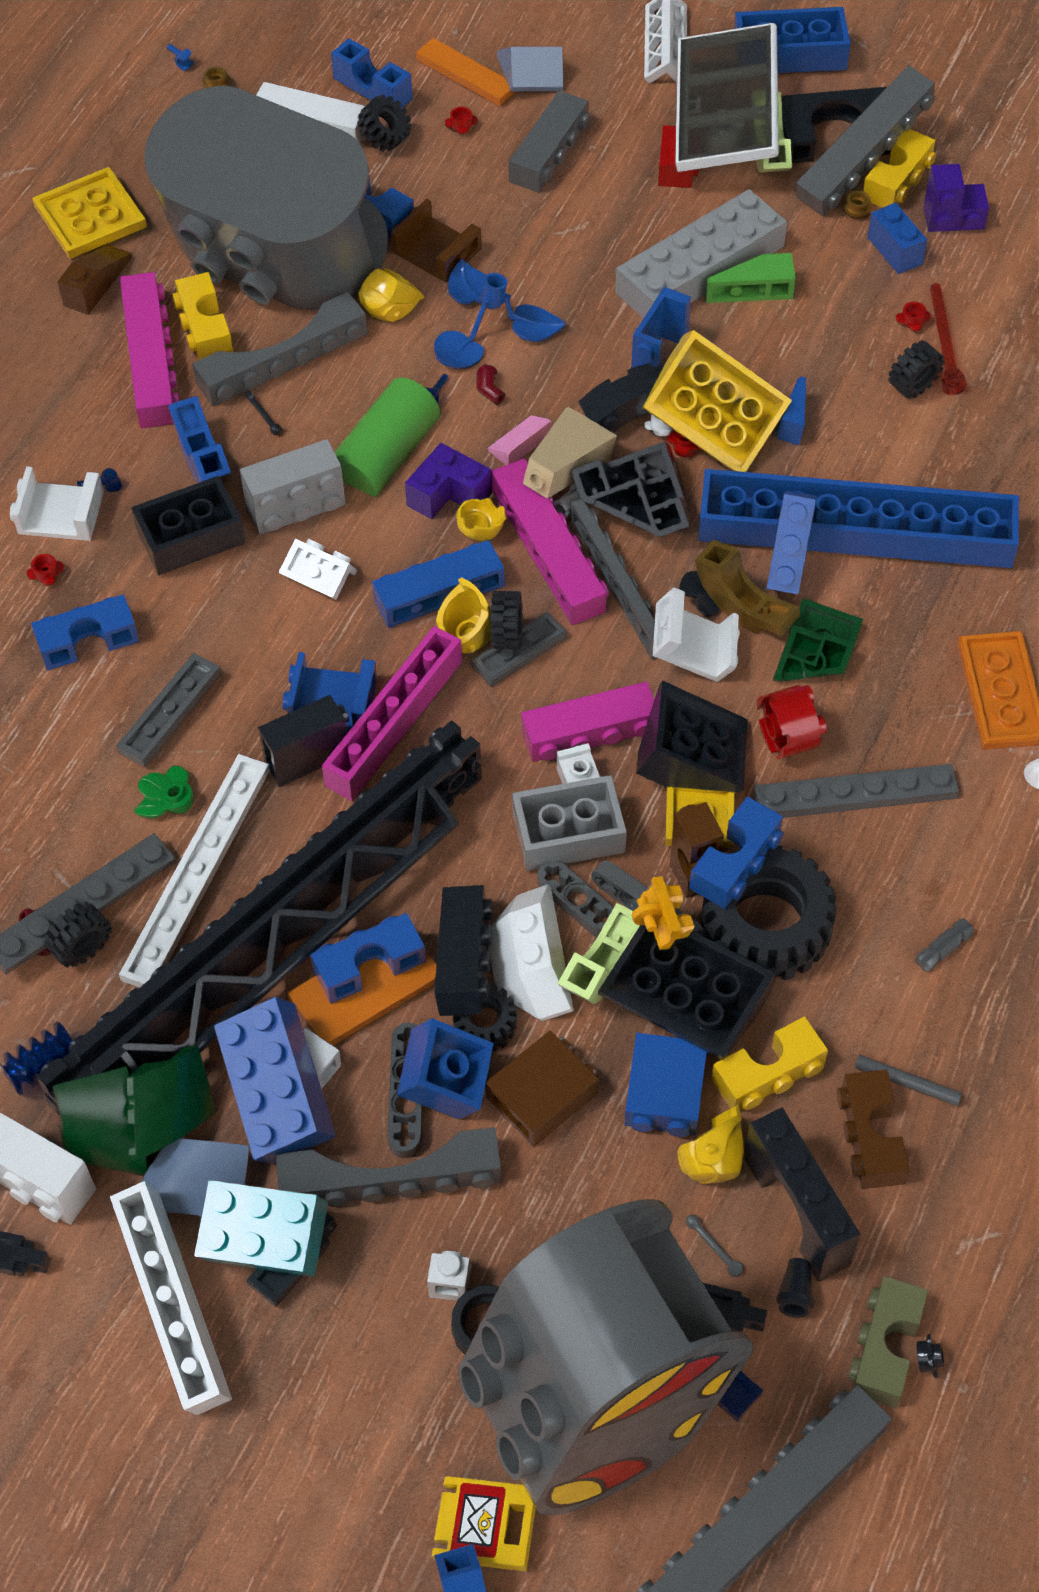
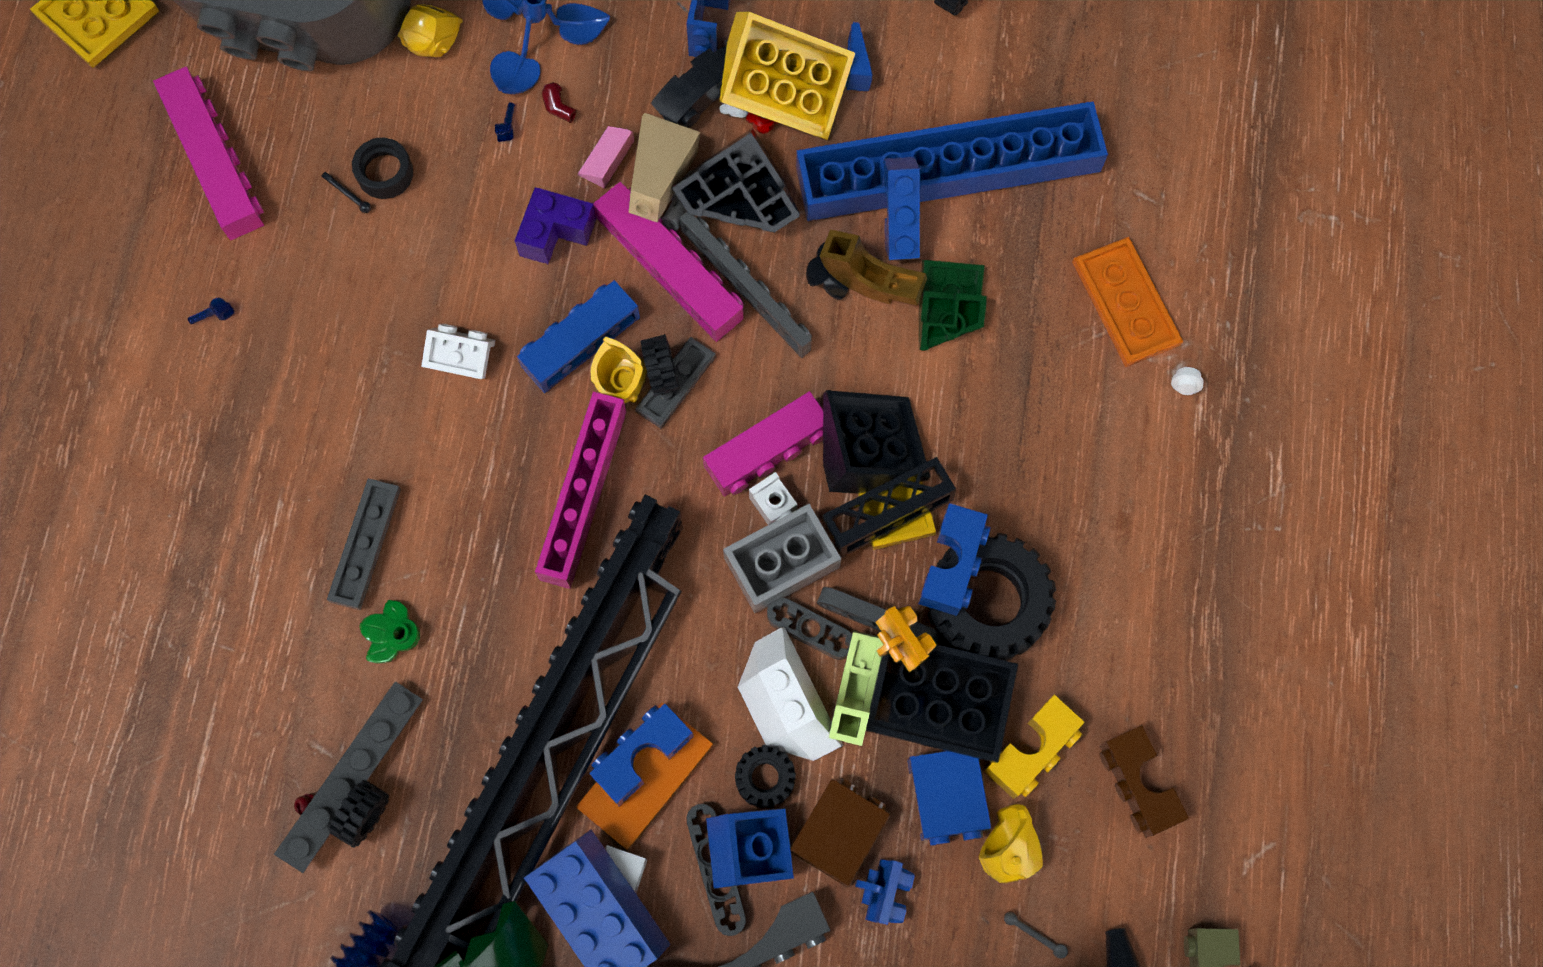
camera: 20 degrees left, 15 degrees up
(40, 564) = (181, 423): red plate -> none
(56, 508) = (177, 353): white panel -> none
(91, 277) = (123, 83): reddish brown slope -> none
(104, 619) = (228, 495): blue arch -> none
(188, 525) = (316, 341): black brick -> none
(195, 439) = (296, 248): blue arch -> none
(195, 870) = (447, 709): white plate -> none
(197, 301) = (240, 84): yellow arch -> none
(232, 373) = (299, 160): dark grey arch -> none
(293, 486) = (406, 273): light grey brick -> none
(303, 416) = (373, 149): none -> black tyre
(303, 739) = (508, 544): black brick -> none
(350, 689) = (513, 484): blue panel -> none
(386, 435) = (474, 189): bright green brick -> none
(463, 951) = (726, 722): black brick -> none
(480, 519) = (597, 256): yellow hair -> none
(580, 1144) = (881, 891): none -> blue hips
(659, 814) = (895, 517): none -> black fence
(692, 835) = (910, 557): reddish brown arch -> none
(693, 640) = (839, 331): white panel -> none
(779, 1153) = (1135, 901): black arch -> none
(790, 721) = (953, 395): red brick -> none
(859, 791) = (1031, 443): dark grey plate -> none
(911, 1081) = (1156, 721): dark grey bar -> none
(944, 944) = (1150, 577): dark grey axle -> none

